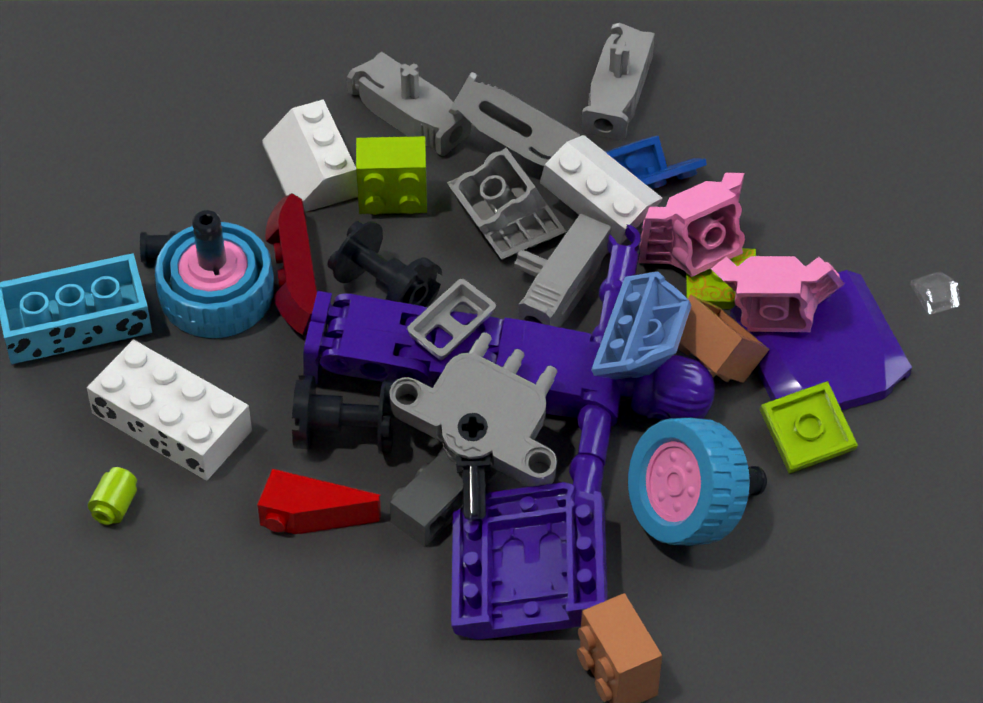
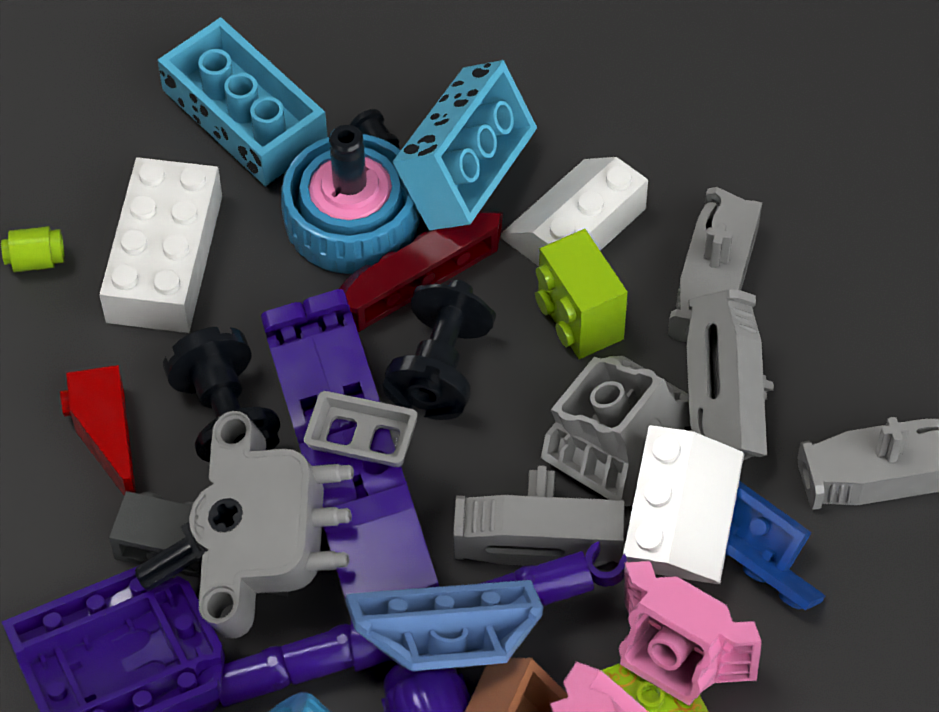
camera: 65 degrees right, 5 degrees up
(227, 182) = (465, 145): none -> medium azure brick

